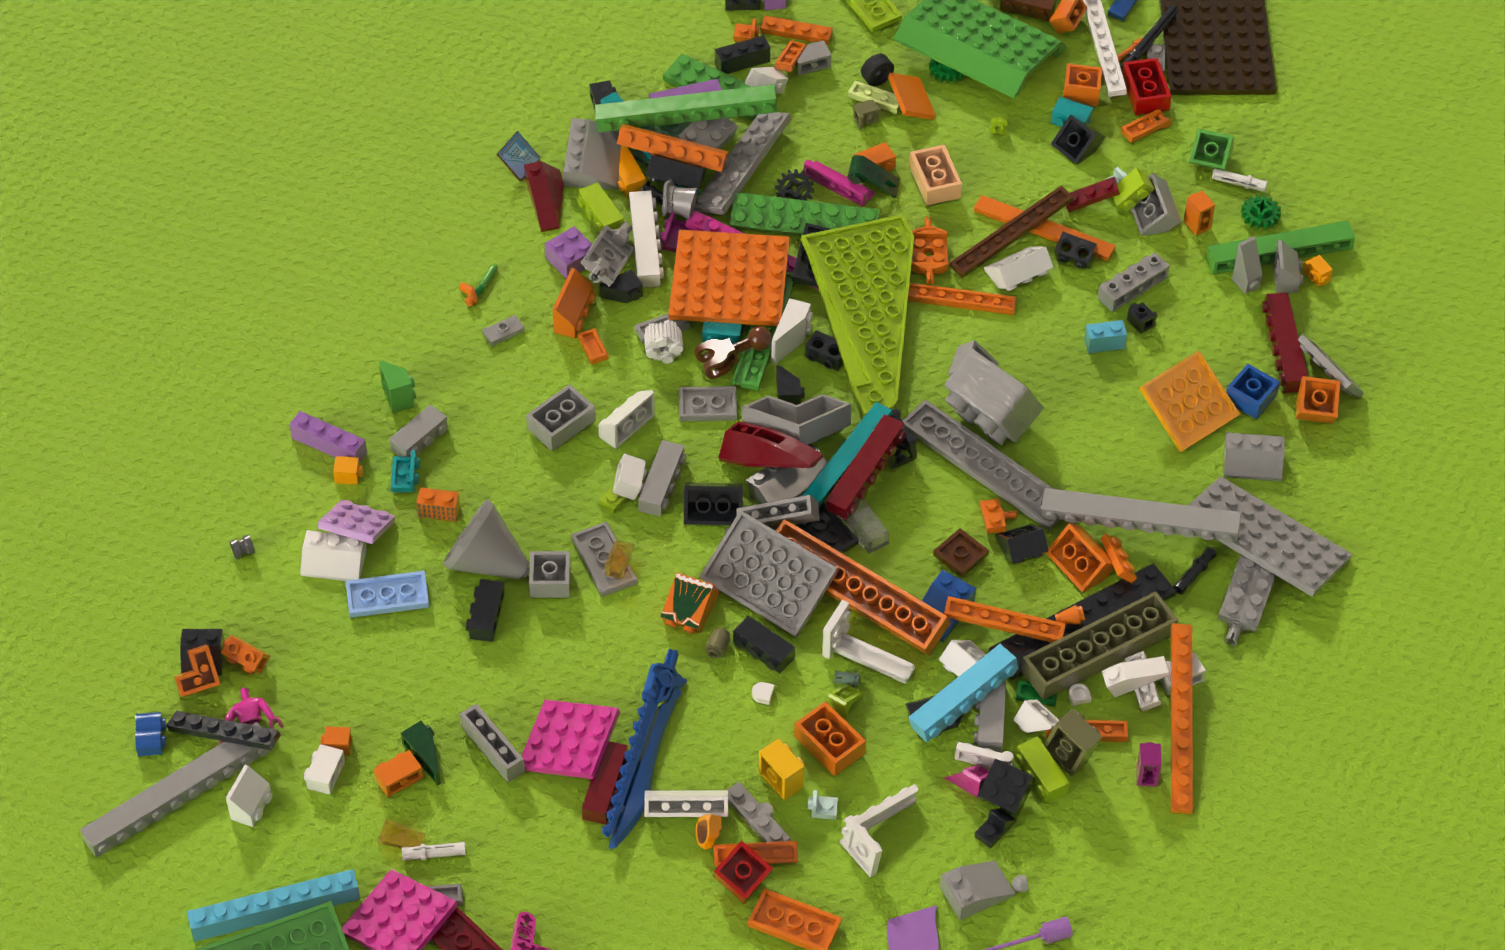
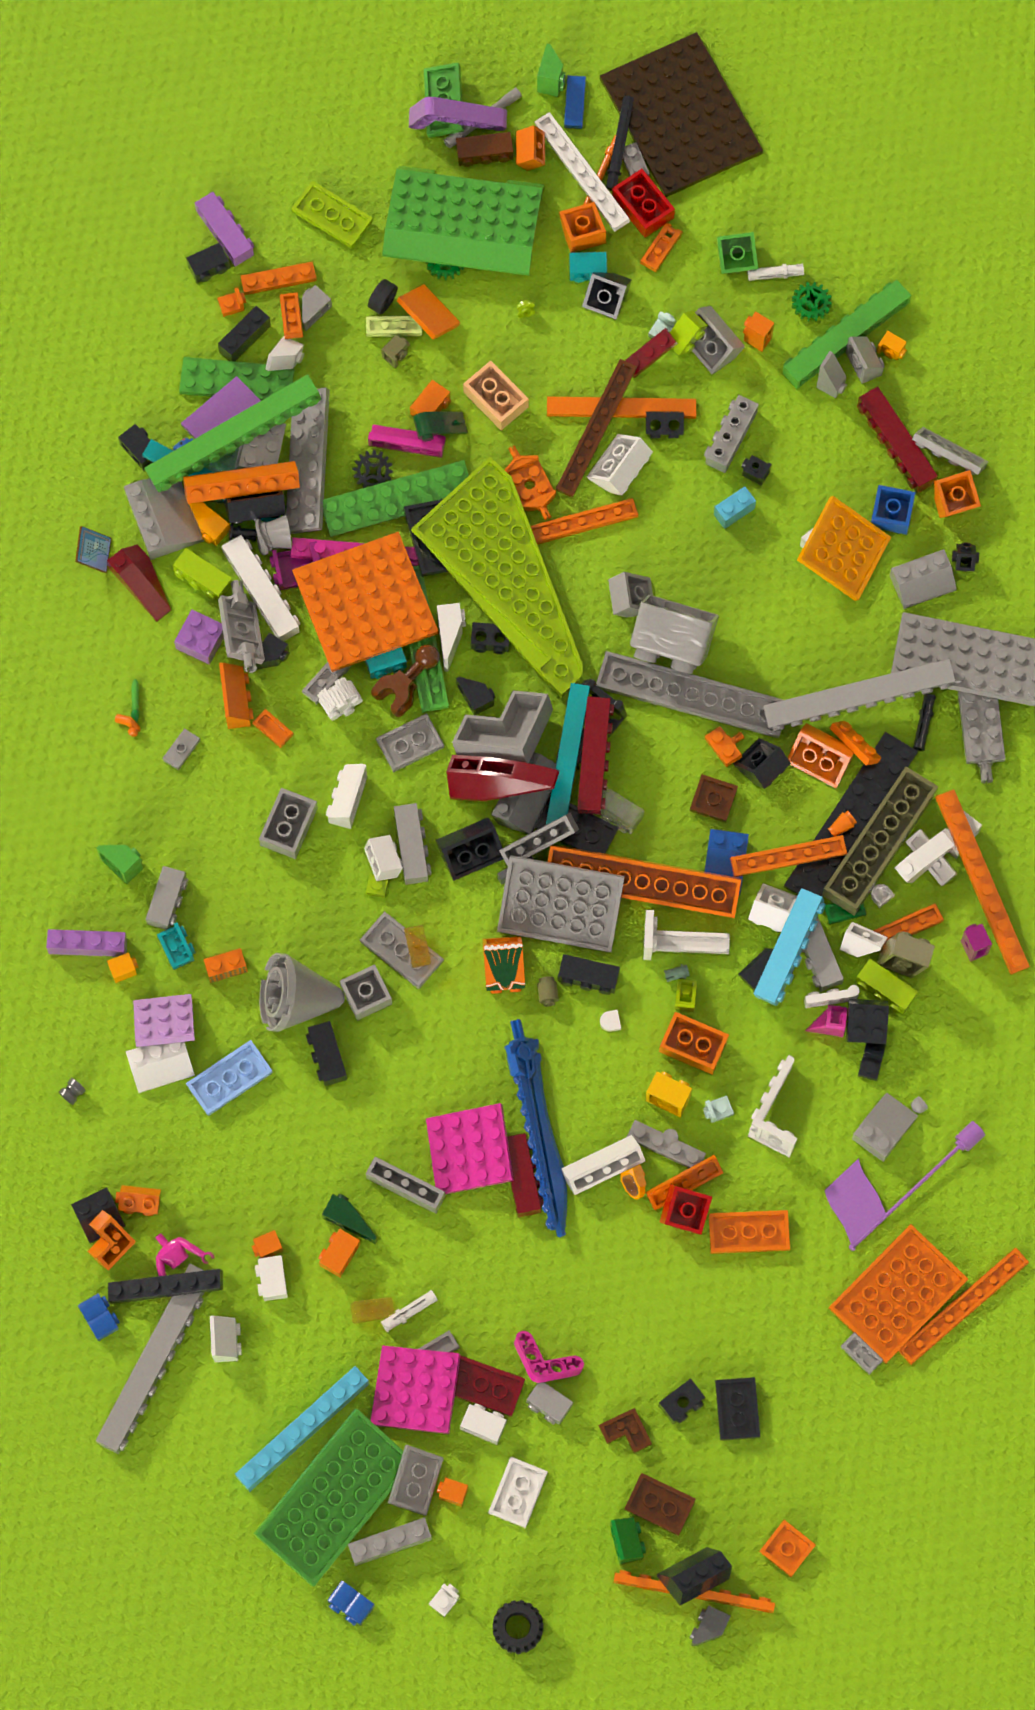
camera: 25 degrees left, 20 degrees up
(1296, 453) = (965, 557): none -> black brick

